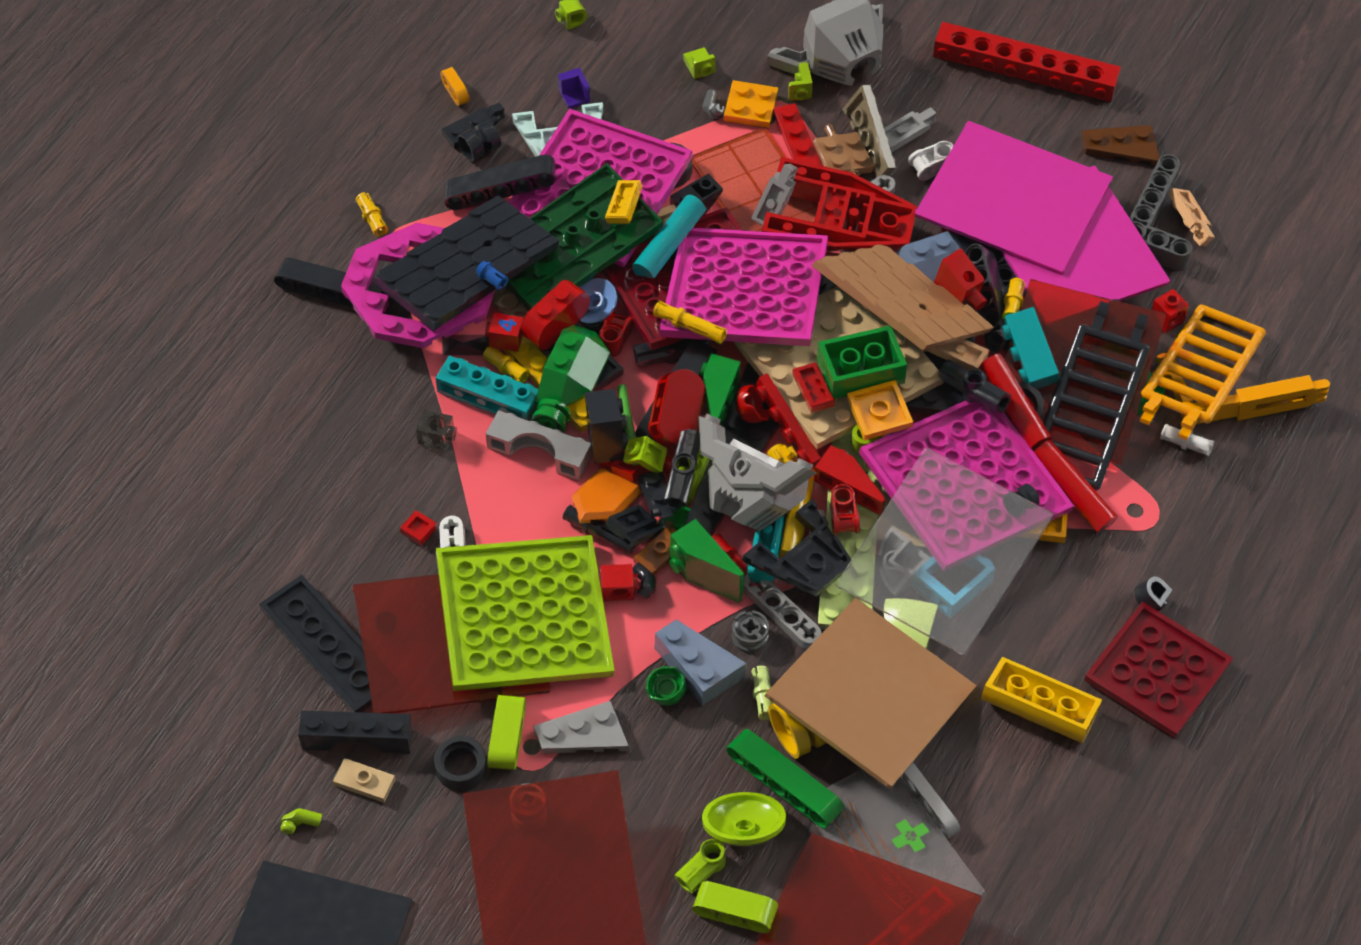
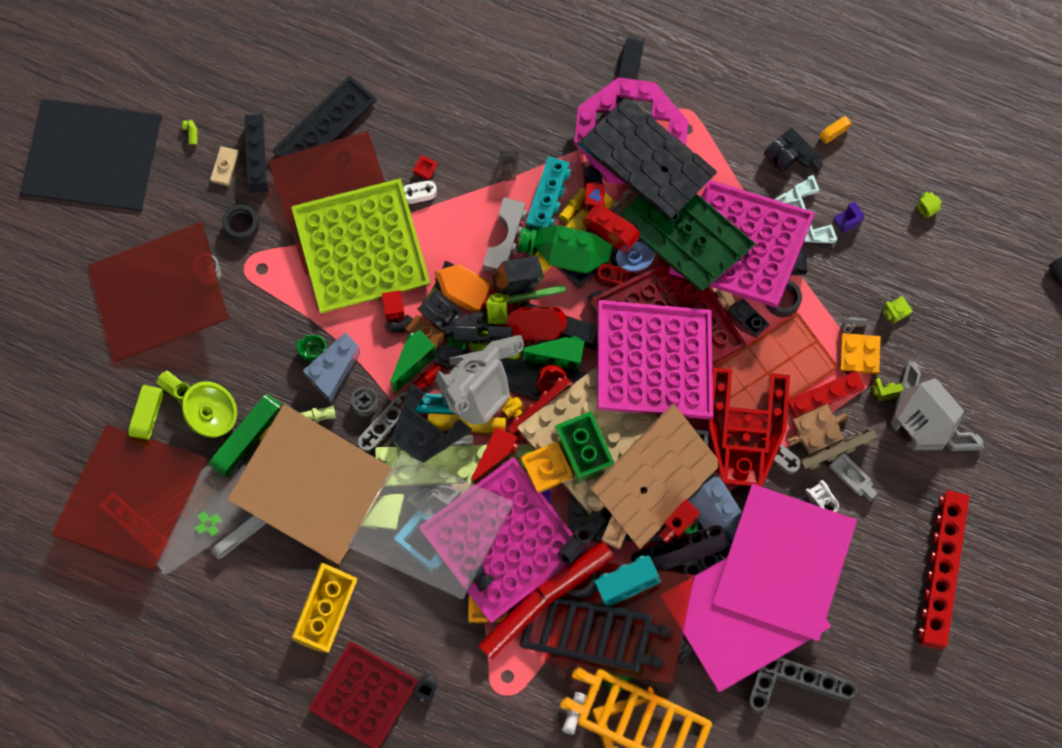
camera: 80 degrees right, 15 degrees up
(371, 214) = (700, 91): yellow pin -> none
(486, 271) = (628, 169): blue pin -> none
(500, 181) = (736, 173): black beam -> none
(506, 732) = (266, 249): lime beam -> none
(586, 729) = (274, 299): light grey wing -> none
(623, 202) = (715, 259): yellow plate -> none
(669, 237) = (695, 300): teal brick -> none
(681, 318) = (606, 310): yellow pin -> none
(776, 193) = (753, 376): light grey hinge -> none
(813, 387) = (560, 414): red plate -> none
(844, 514) = (463, 454): red piece -> none
(1014, 298) = (676, 566): yellow pin -> none
(1125, 142) = (873, 658): reddish brown wing -> none
(1174, 307) = (696, 695): red brick -> none
(1192, 215) = (802, 713): light nougat hinge -> none

